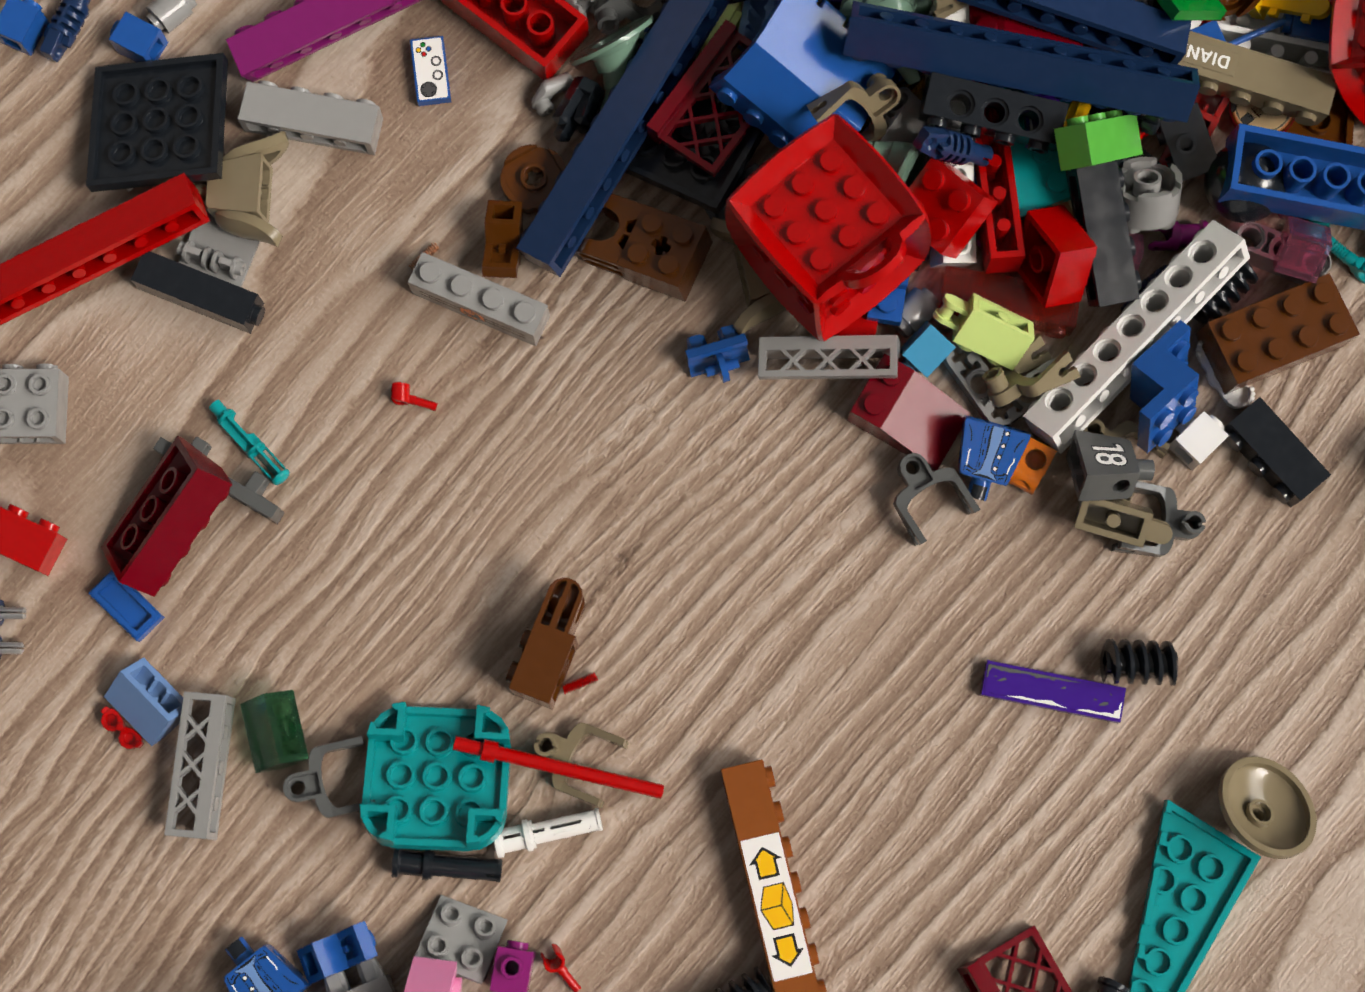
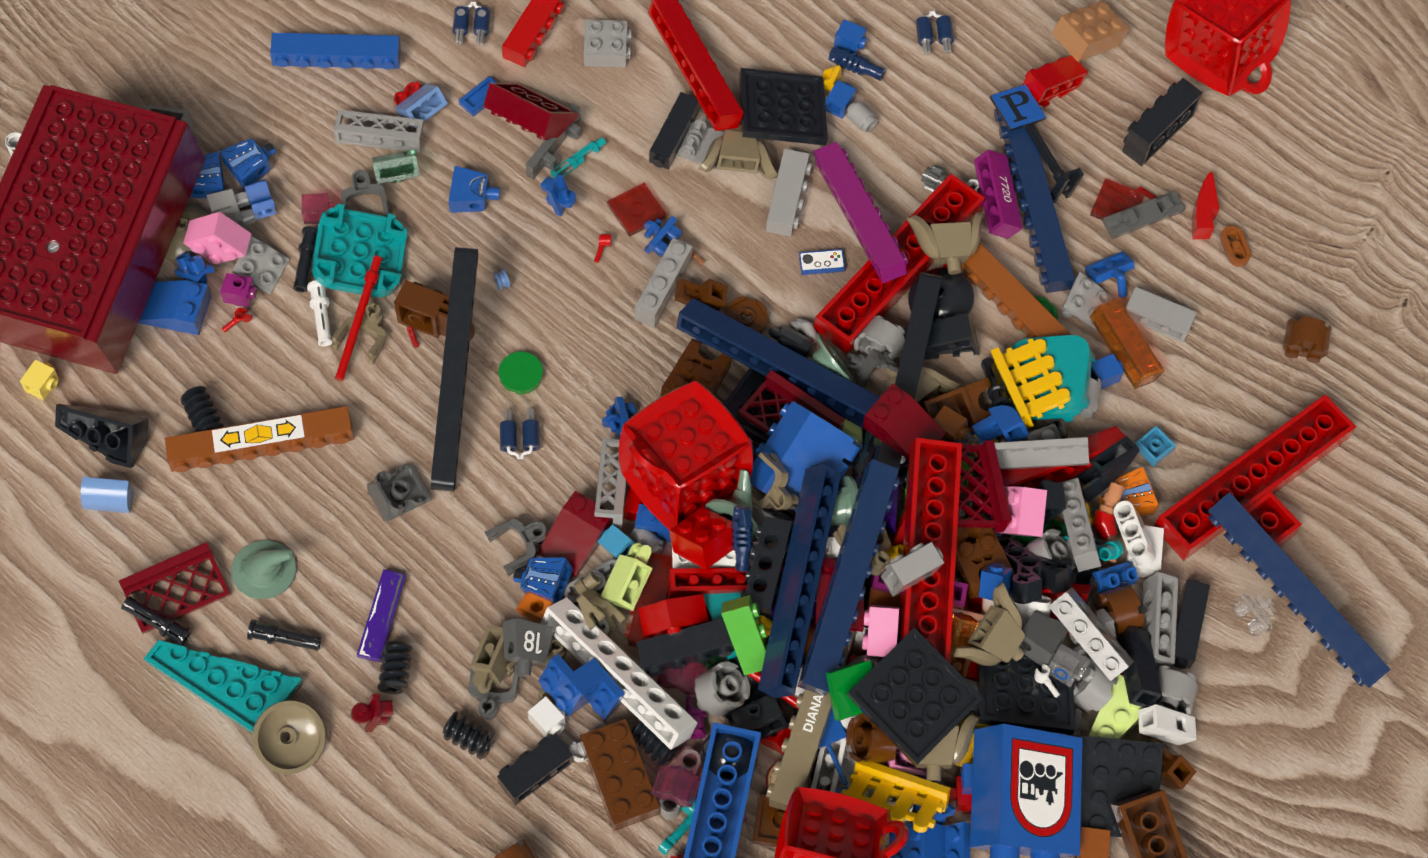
camera: 90 degrees right, 15 degrees down
(39, 855) = (335, 50): none -> blue brick
(94, 55) = (831, 76): none -> yellow slope
(314, 607) = (470, 191): none -> blue torso
(326, 462) = (558, 194): none -> blue hips
(340, 348) = (636, 208): none -> clear red tile
(351, 856) = (313, 206): none -> clear pink brick
(390, 309) = (669, 230): none -> blue hips
(477, 548) = (501, 279): none -> medium blue bush
(638, 511) = (520, 372): none -> green tile
(656, 599) = (454, 369): none -> black beam
(746, 521) = (530, 434): none -> dark blue piece
(852, 682) = (397, 492): none -> dark grey slope
(988, 878) = (263, 569): none -> sand green piece
(1098, 850) = (312, 642): none -> black pin
(1220, 686) = (373, 713): none -> dark red hips
(1233, 548) = (468, 736): none -> black piece

